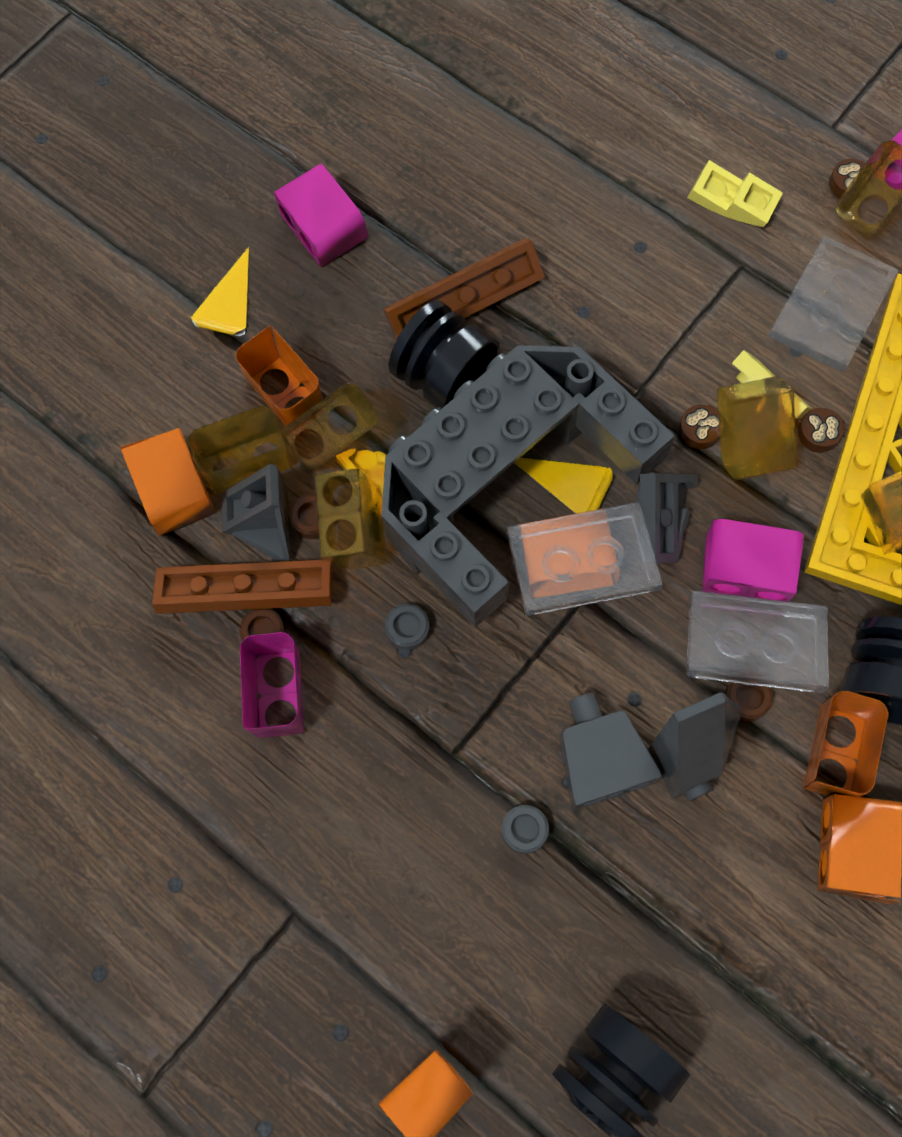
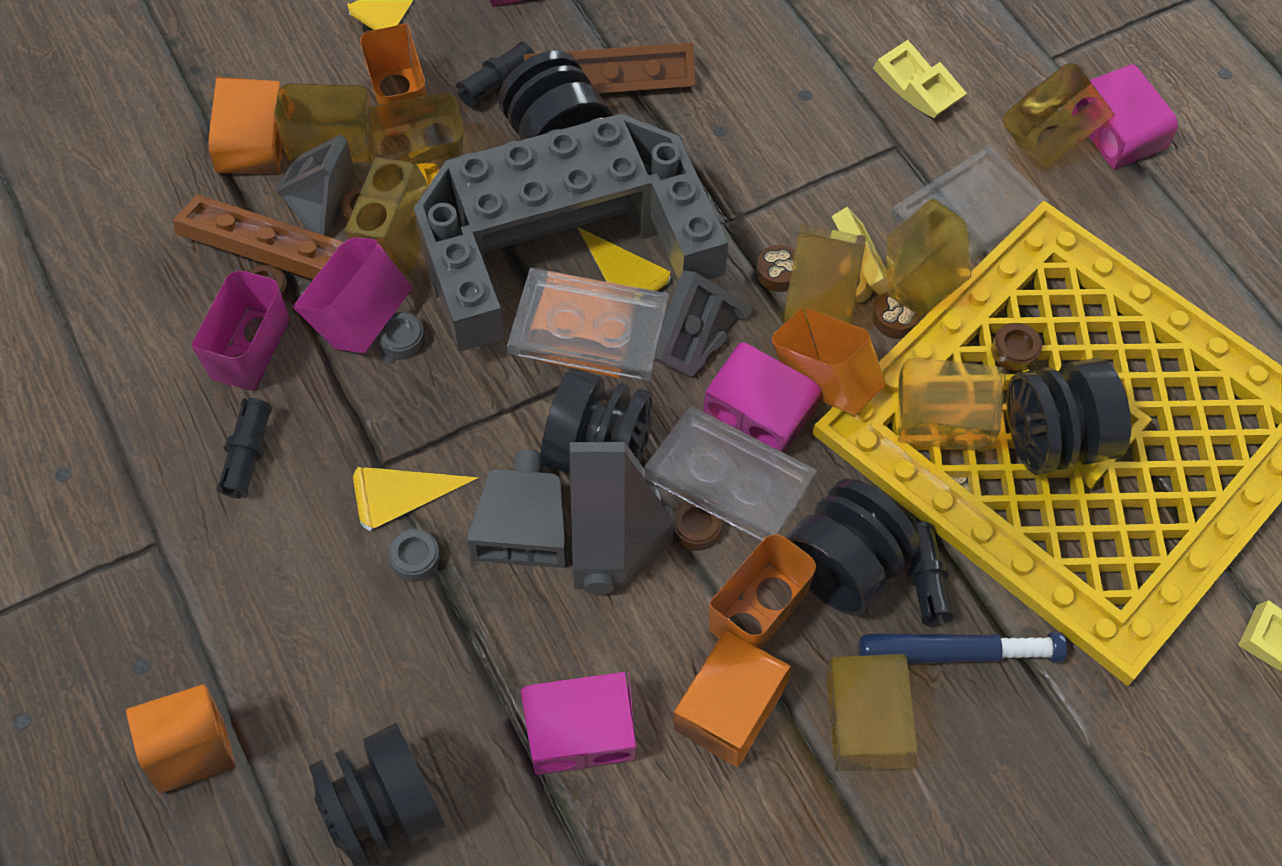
camera: 15 degrees right, 10 degrees down
(328, 795) = (244, 448): none -> black pin
(355, 611) = (354, 295): none -> dark pink piece
(363, 337) = (491, 75): none -> black pin
(477, 777) = (392, 493): none -> yellow sticker
(644, 652) = (584, 416): none -> black wheel
(748, 926) = (579, 722): none -> dark pink piece
(799, 489) = (846, 359): none -> orange piece
(835, 371) = (937, 248): none -> clear yellow piece

